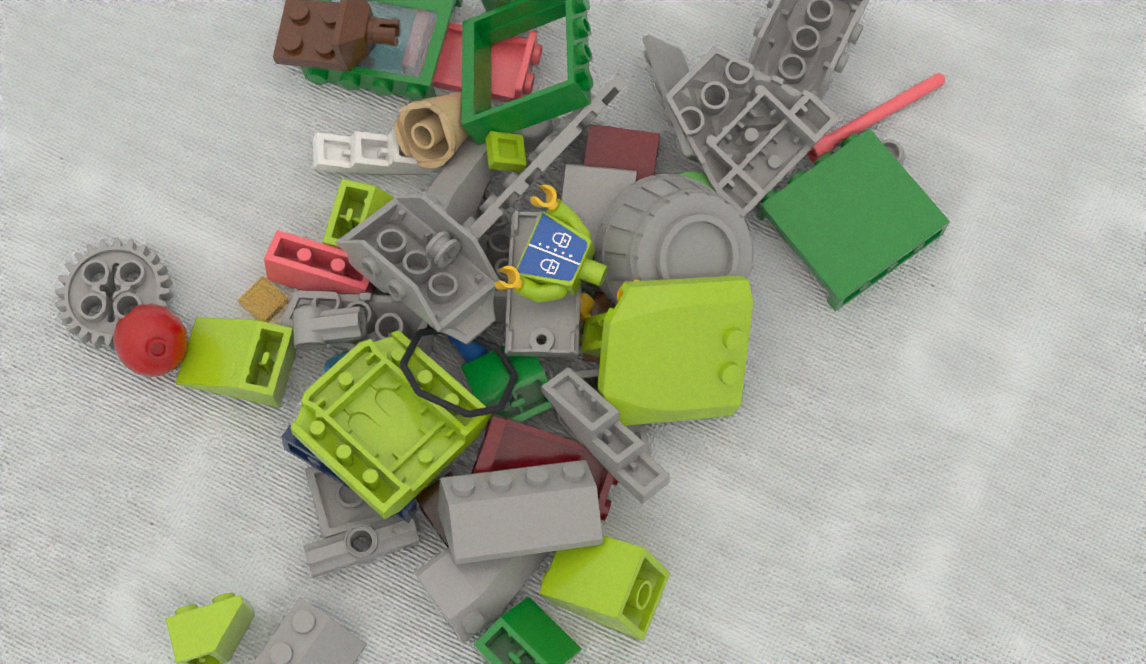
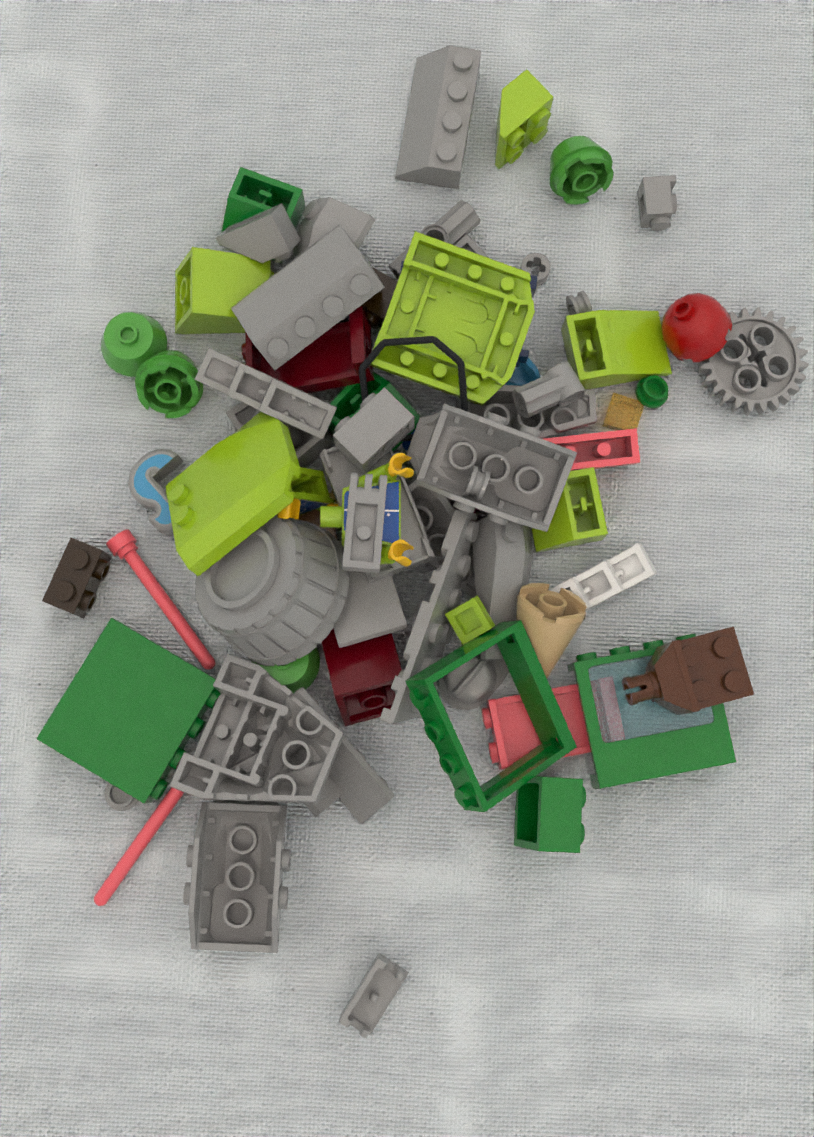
camera: 155 degrees right, 10 degrees up
(115, 490) = (656, 201): none -> light grey brick
(175, 554) = (579, 169): none -> bright green cone
(225, 305) = (652, 391): none -> green plate
(250, 417) = (578, 304): none -> light grey bush
(262, 481) = (540, 259): none -> light grey bush
(517, 340) = (373, 430): none -> light grey brick
(539, 613) = (262, 236): none -> light grey slope
(566, 235) = (364, 525): none -> light grey hinge
(696, 505) = (168, 384): none -> bright green cone
(717, 572) = (131, 341): none -> bright green cone
(758, 409) = (145, 487): none -> animal
(803, 372) = (124, 546): none -> coral piece
(860, 356) = (77, 578): none -> dark brown brick

